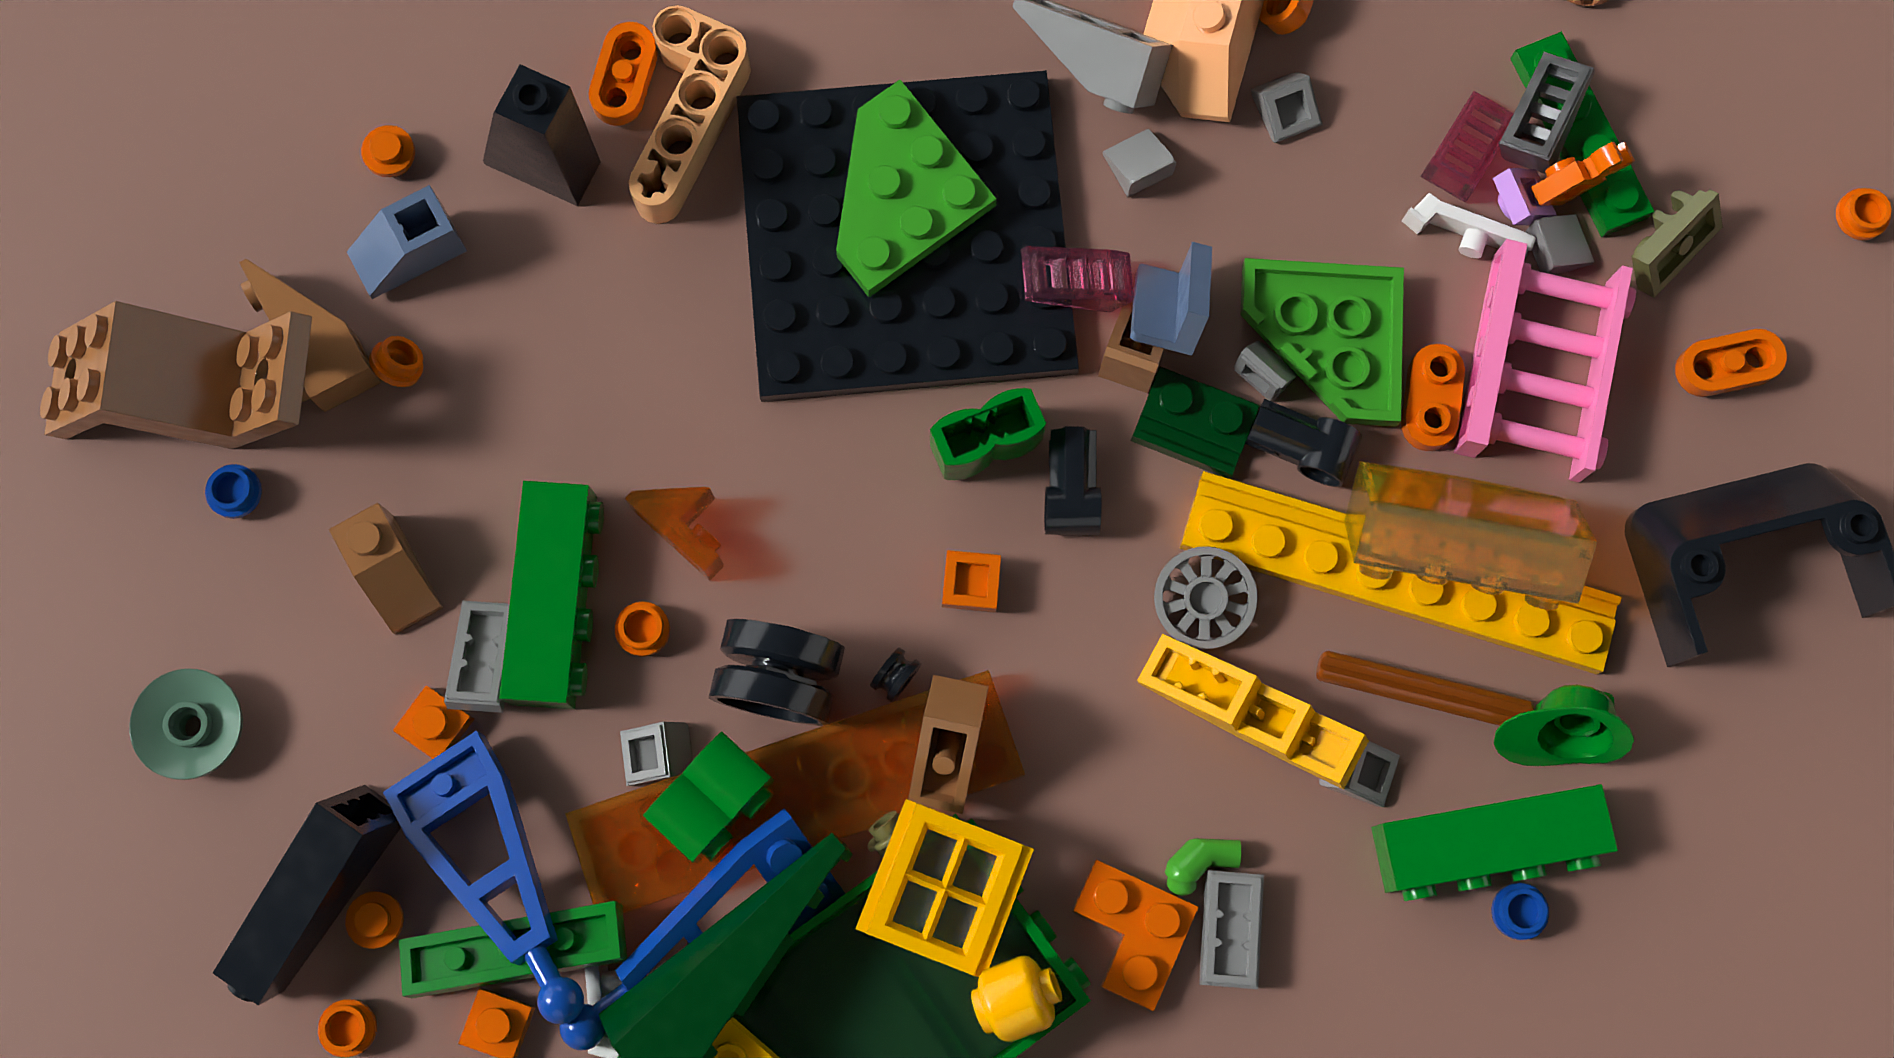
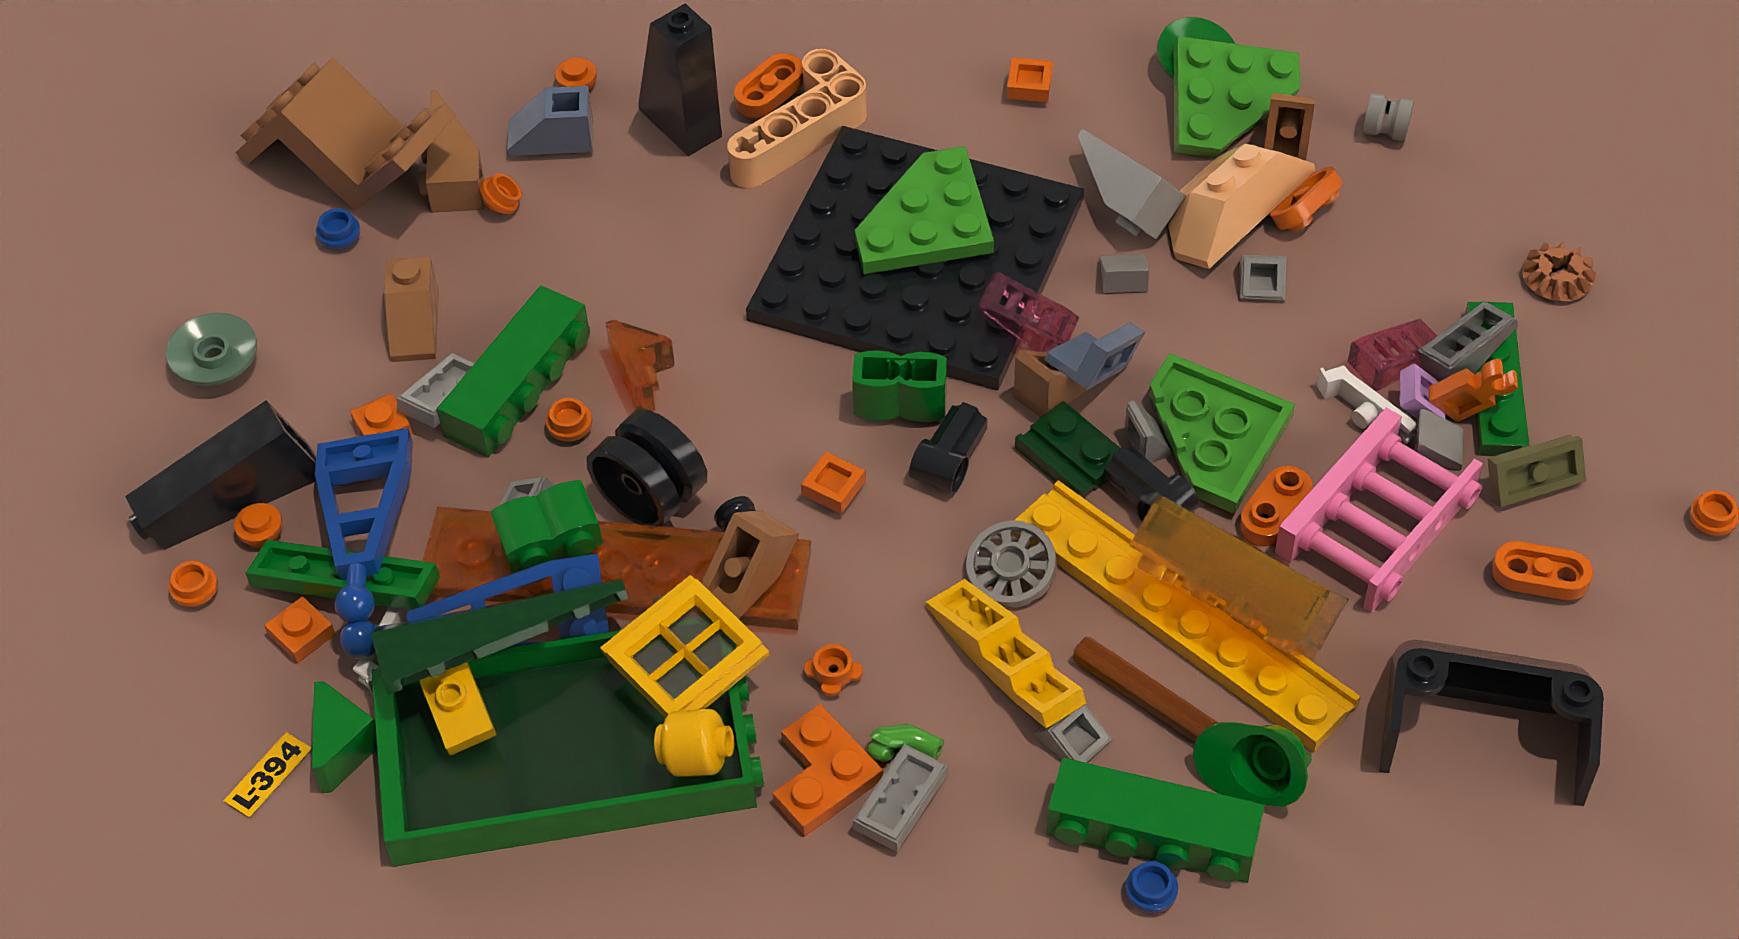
camera: 30 degrees right, 25 degrees down
(1101, 804) = (833, 657): none -> orange plate

